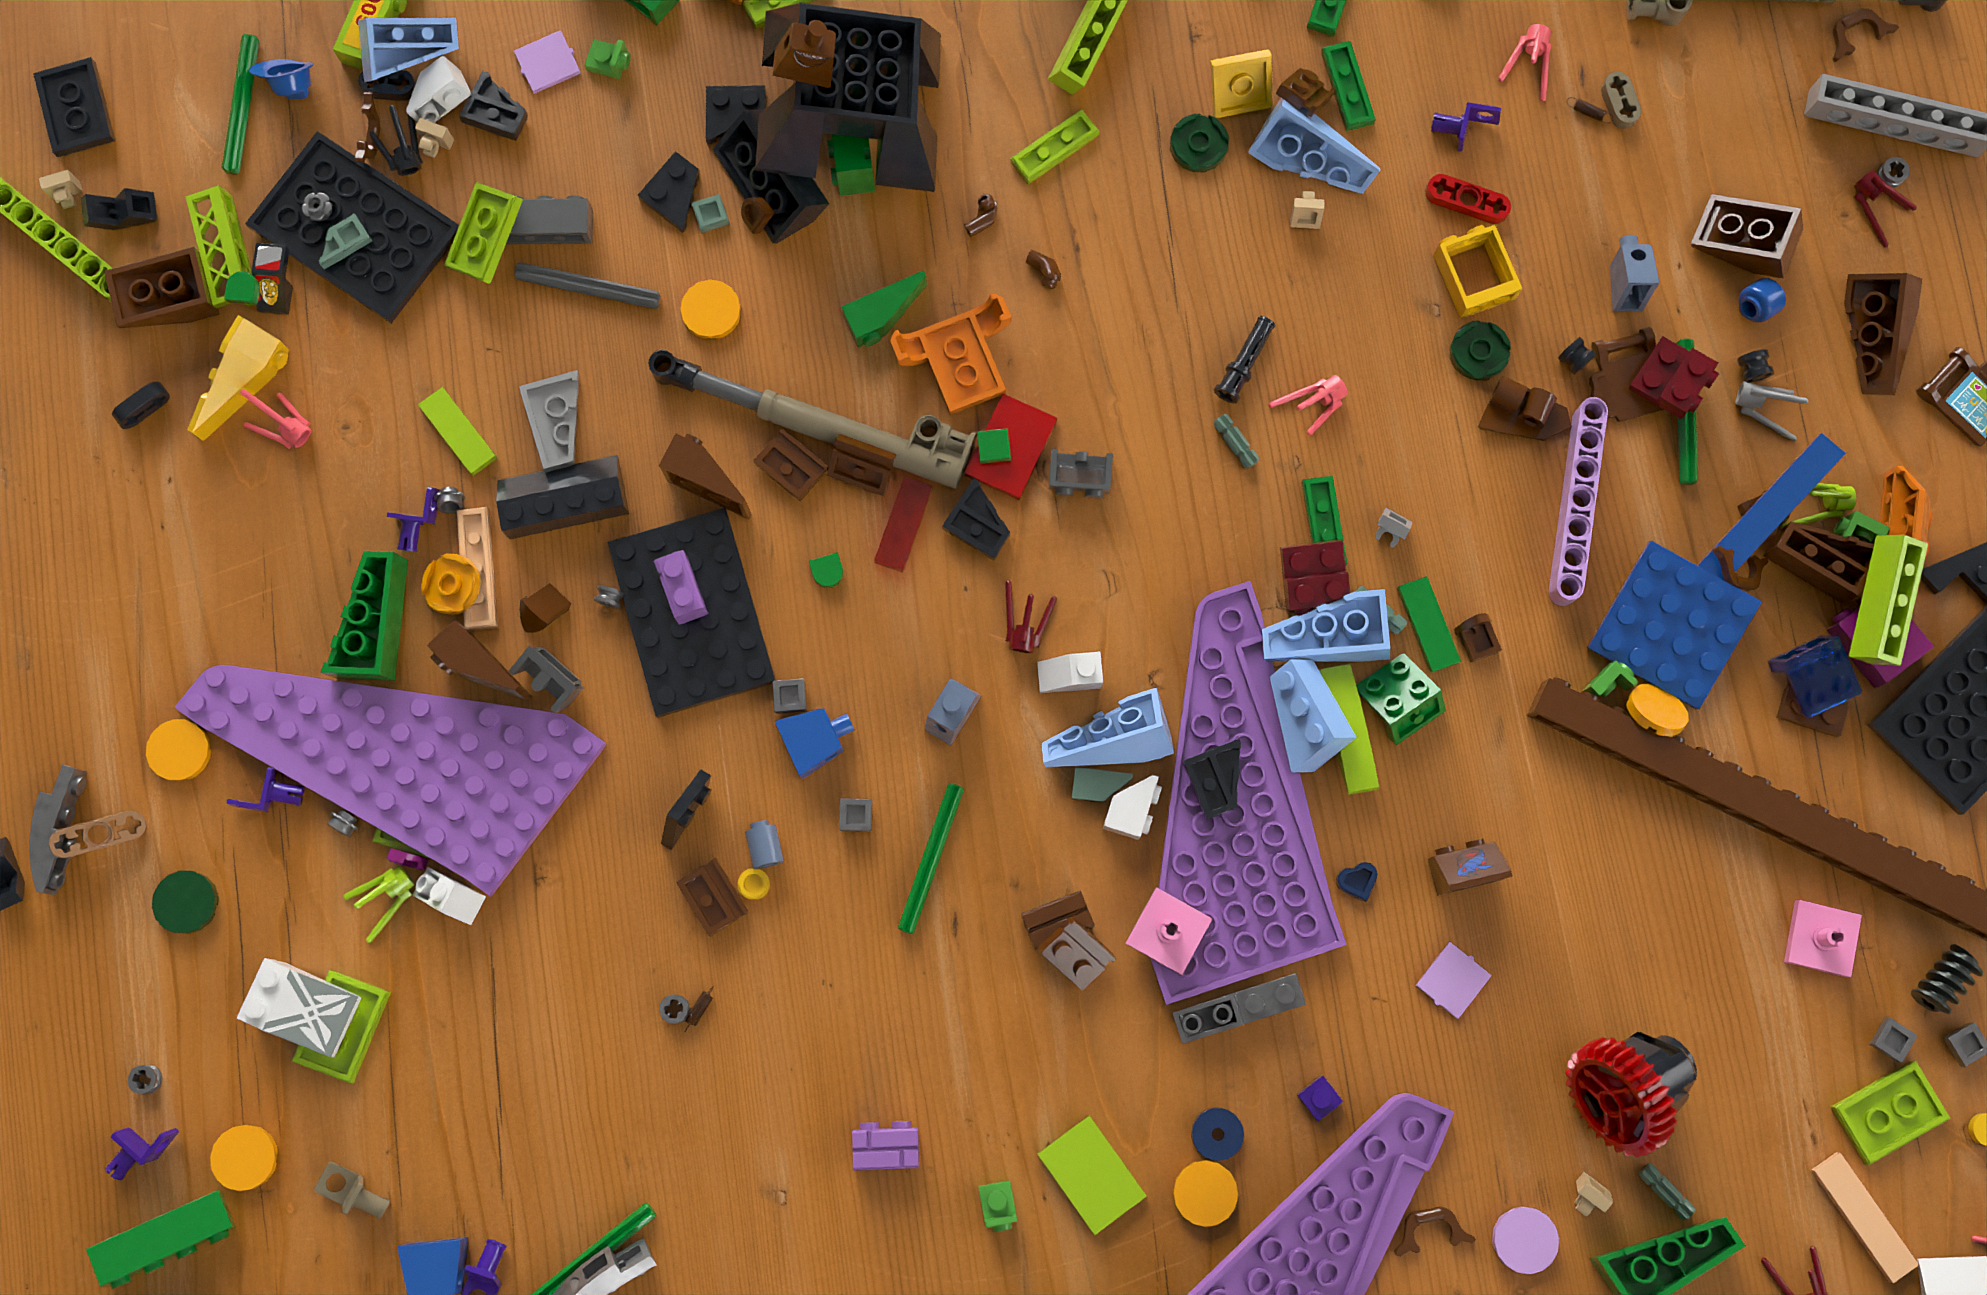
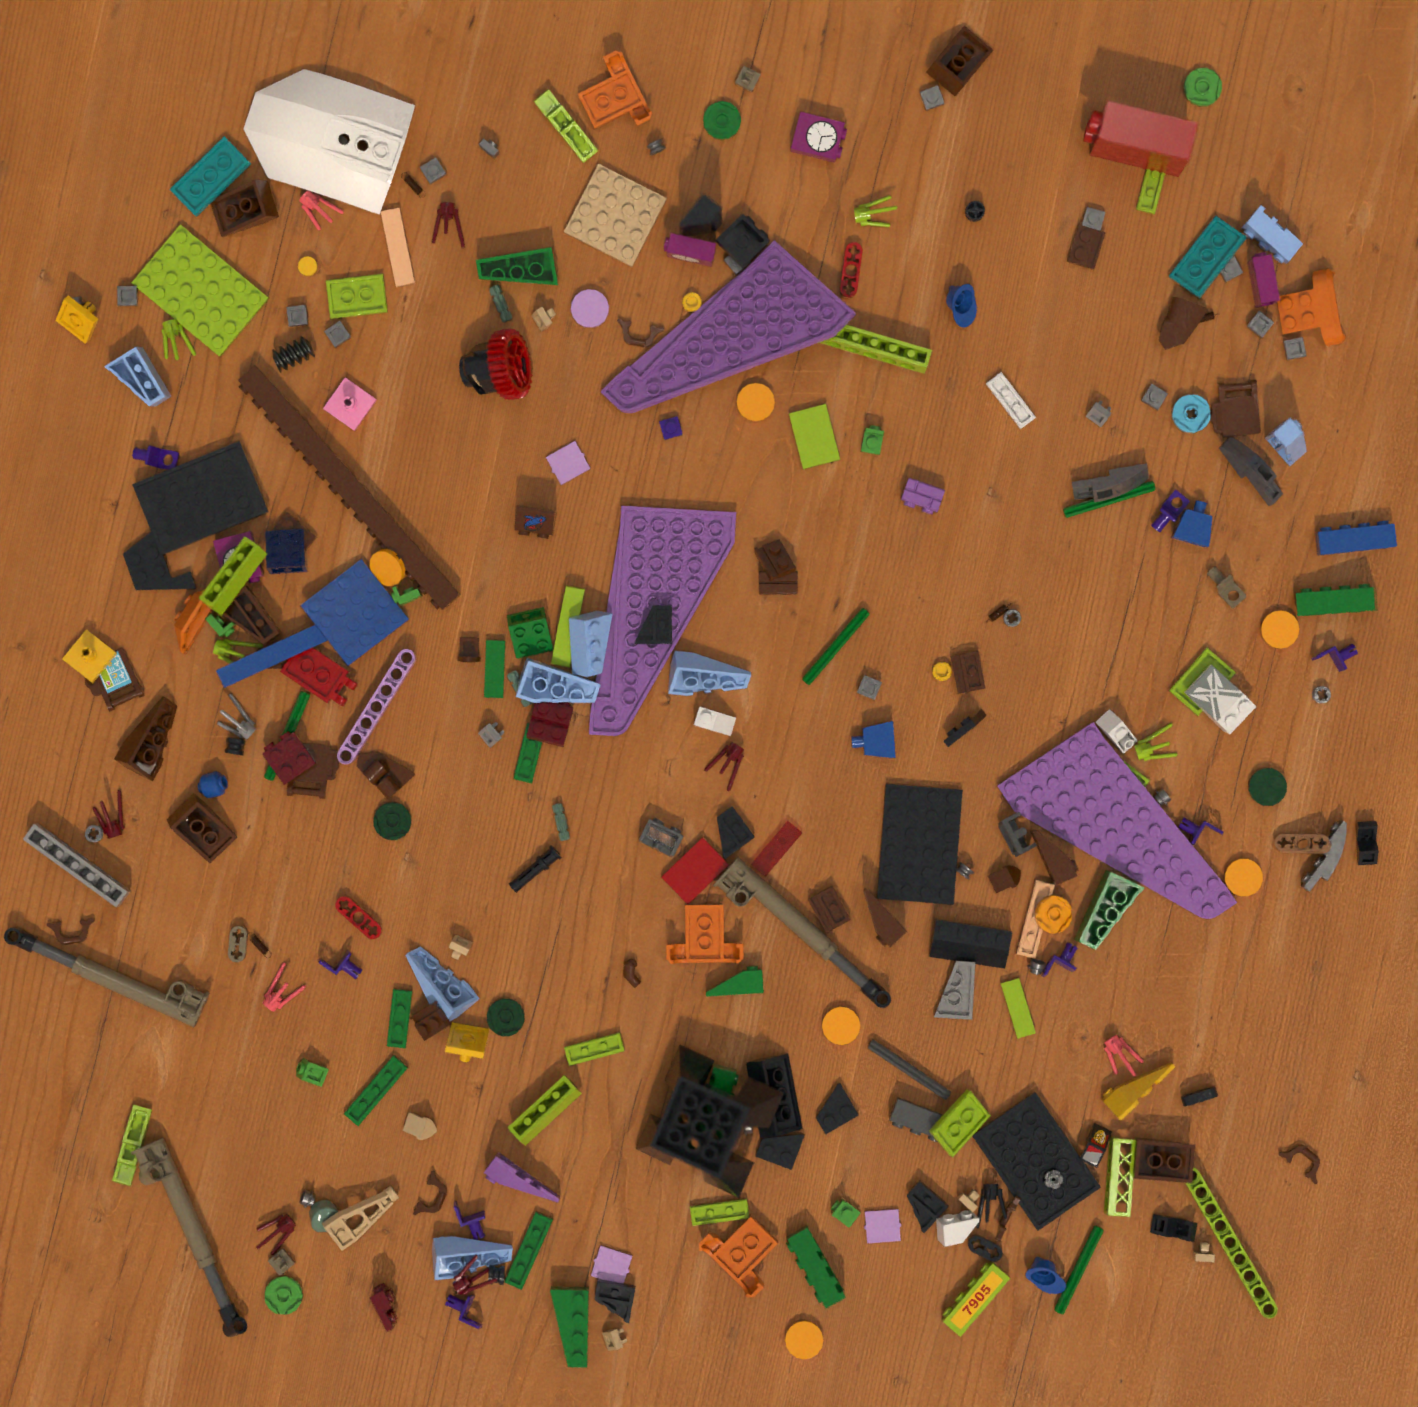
camera: 160 degrees left, 10 degrees up
(74, 107) = (1180, 1306): black plate -> none
(242, 289) = (1114, 1141): green tile -> none
(343, 240) = (1044, 1152): sand green tile -> none
(403, 42) = (966, 1263): light blue wedge -> none
(407, 859) = (1132, 761): magenta tile -> none
(681, 587) = (920, 857): medium lavender brick -> none
(710, 213) = (818, 1087): sand green tile -> none
(756, 213) = (791, 1075): reddish brown tile -> none
(764, 845) = (927, 690): sand blue brick -> none
(789, 696) = (881, 771): flat silver plate -> none
(806, 54) = (729, 1134): reddish brown torso -> none
(827, 570) = (831, 838): green tile -> none
(861, 464) = (788, 892): reddish brown plate -> none
(951, 711) = (790, 726): sand blue torso -> none
(985, 216) = (653, 1021): reddish brown arm -> none
(993, 446) = (705, 873): green tile -> none
(1097, 784) = (725, 651): sand green tile -> none
(1130, 808) = (711, 630): white slope -> none
(1168, 931) = (718, 552): bright pink tile -> none
(1232, 1134) = (735, 422): dark blue piece -> none
(1239, 1008) = (696, 494): flat silver slope -> none
(1327, 392) = (493, 828): coral plant -> none
(1357, 881) = (598, 538): dark blue tile -> none
(1486, 299) = (374, 849): yellow window -> none
(1577, 355) = (338, 794): black wheel -> none
(1632, 275) = (285, 823): sand blue torso -> none
(1680, 514) = (319, 675): none -> red tile
(1726, 562) = (310, 638): reddish brown helmet -> none

